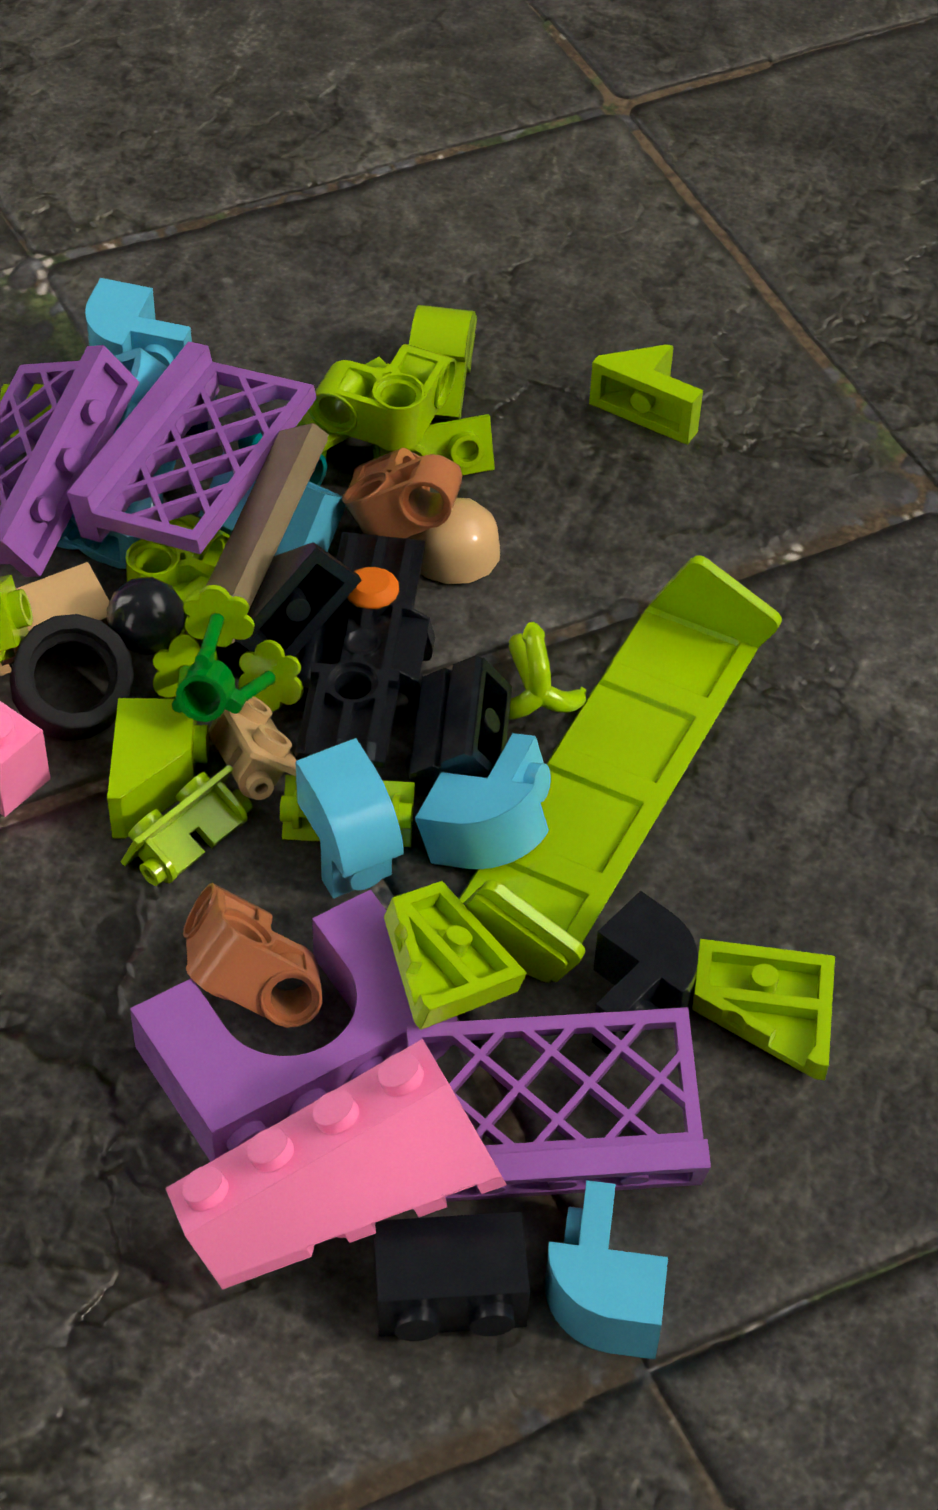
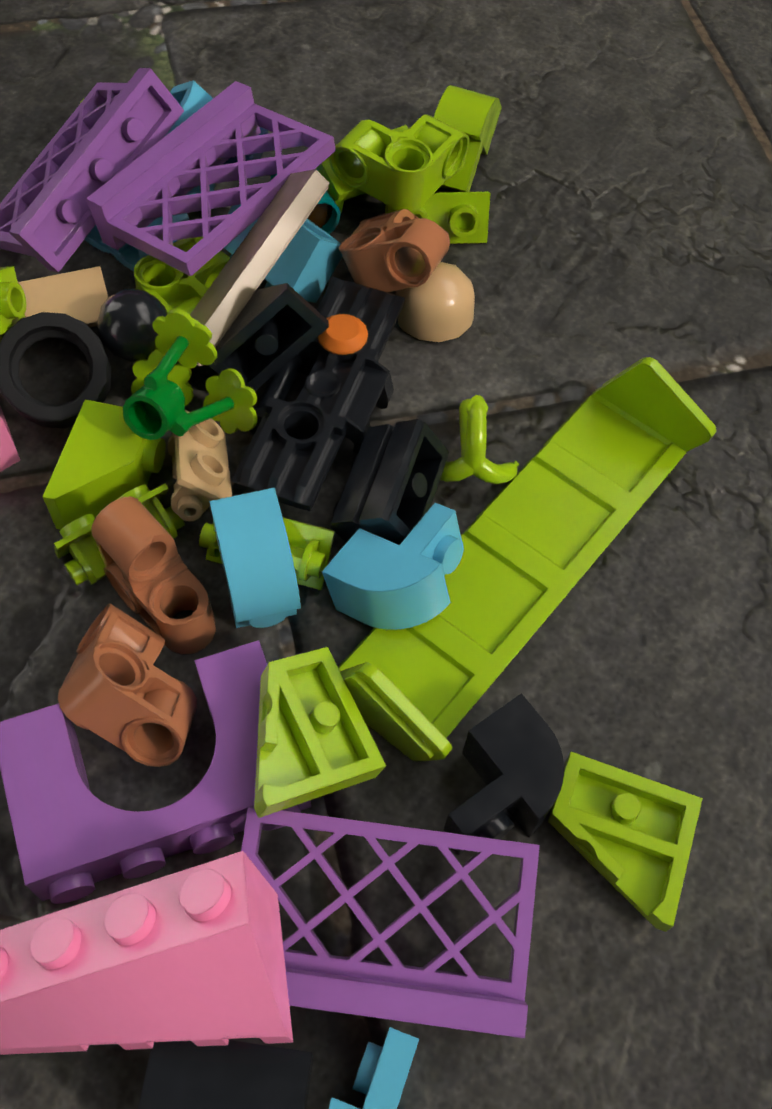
camera: 10 degrees right, 10 degrees up
(124, 319) = (207, 59): medium azure brick -> none
(234, 850) = (152, 576): none -> nougat piece
(640, 390) = (631, 194): lime slope -> none

